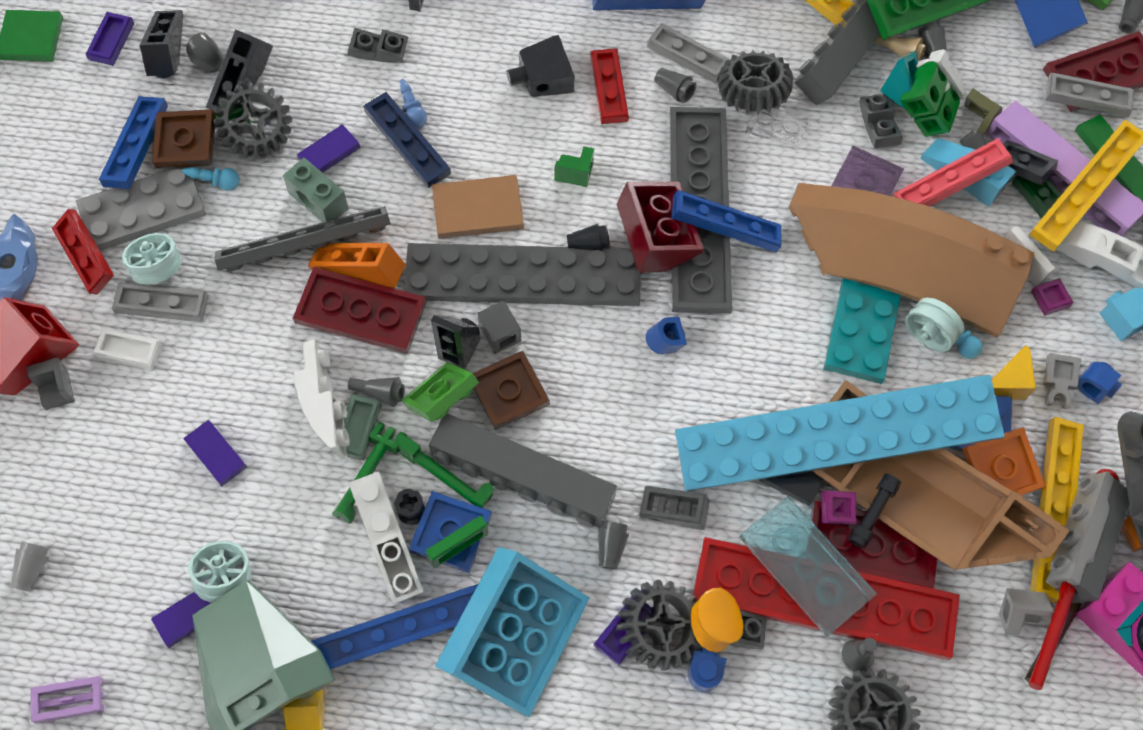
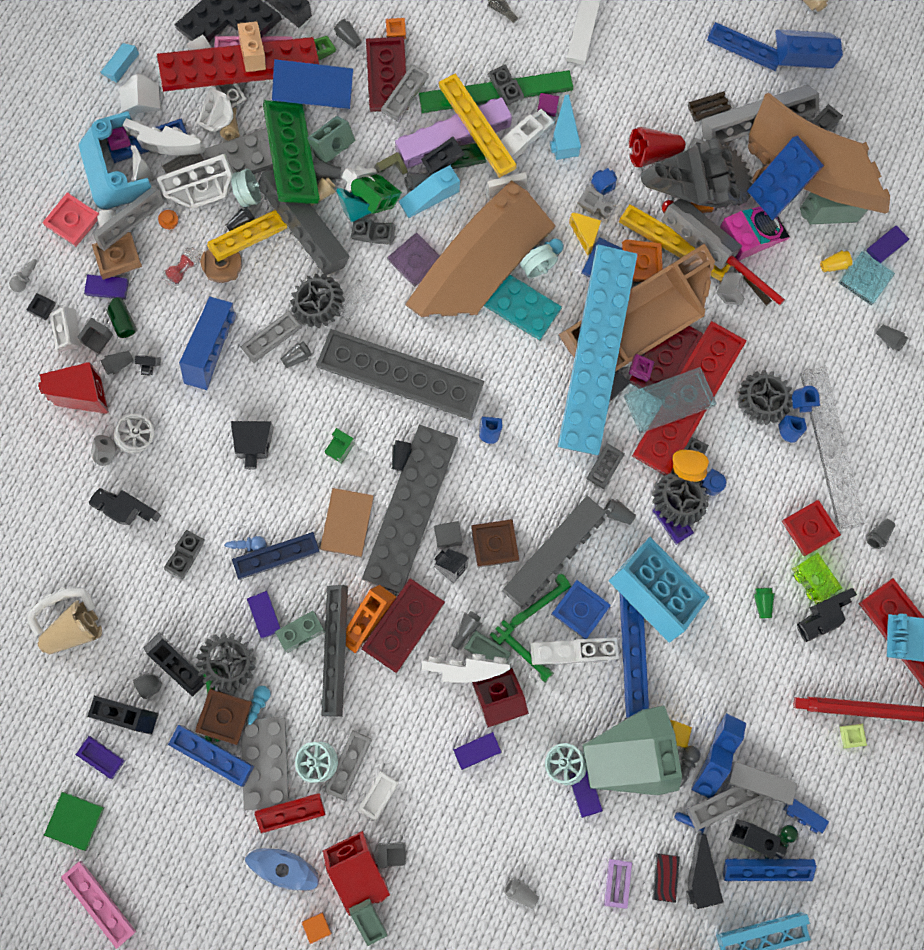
camera: 75 degrees left, 10 degrees up
(293, 458) = (500, 698): none -> dark red slope
(403, 498) = (553, 635): black bush -> none
(440, 392) = (486, 587): bright green plate -> none
(457, 542) = (595, 605): green tile -> none
(609, 86) = (279, 400): red tile -> none
(652, 233) = (410, 405): dark red slope -> none
(726, 221) = (422, 360): blue tile -> none
(859, 653) = (728, 391): dark grey cone -> none
(887, 488) = (639, 334): black bar -> none
(957, 174) = (440, 205): coral tile -> none
(971, 18) = (331, 139): none -> sand green brick
(1052, 297) = (537, 182): magenta tile -> none

